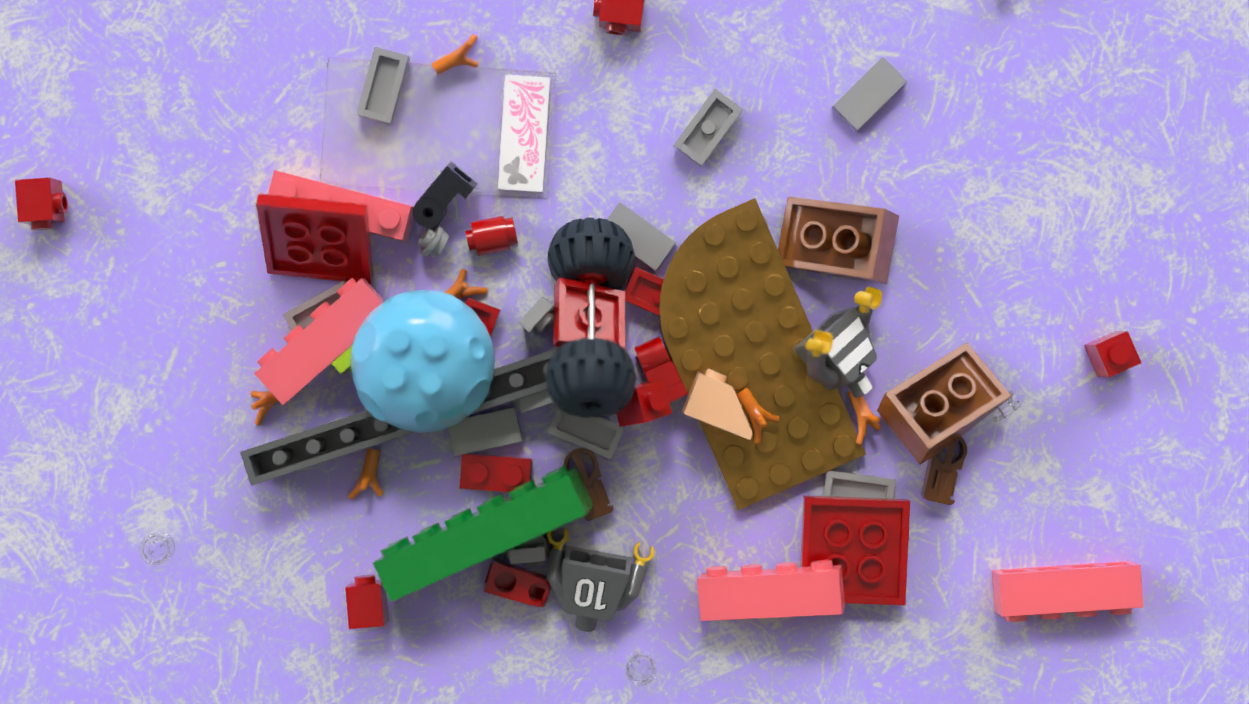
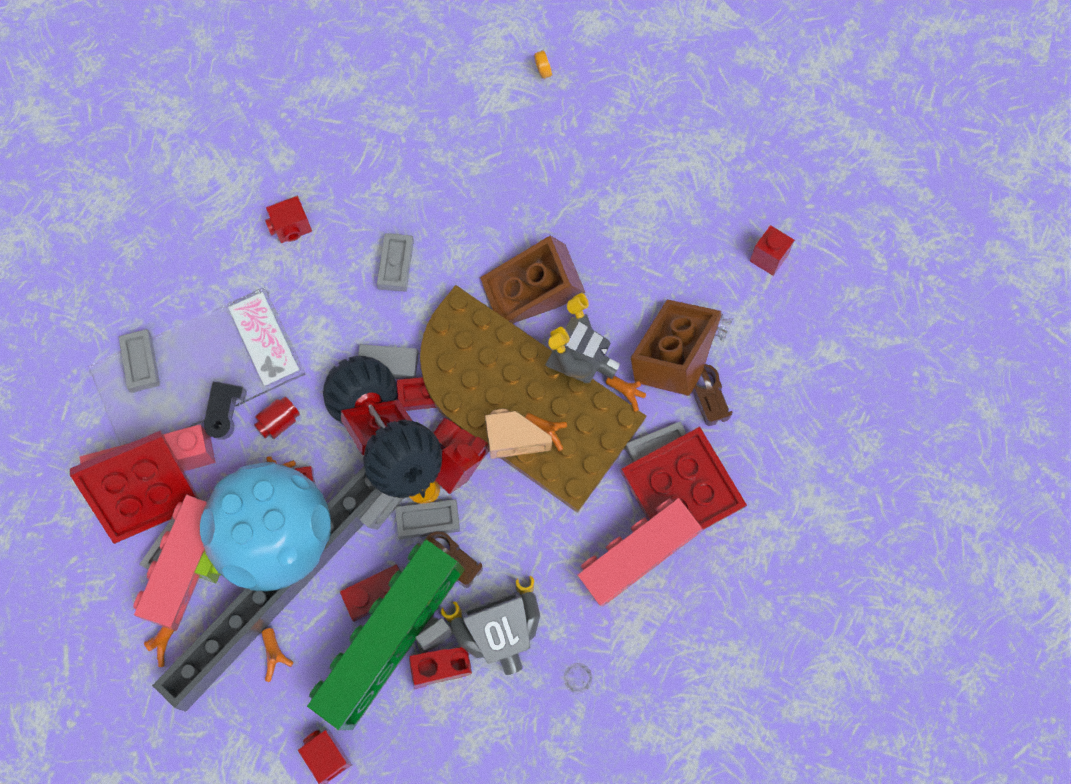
camera: 30 degrees left, 20 degrees down
(433, 241) = (233, 446): light grey plate -> none
(456, 57) = (185, 313): orange bar -> none
(485, 431) = (349, 565): light grey tile -> none
(539, 316) = (341, 450): light grey plate -> none
(869, 94) = (495, 184): light grey tile -> none
(1067, 589) = (854, 425): coral brick -> none

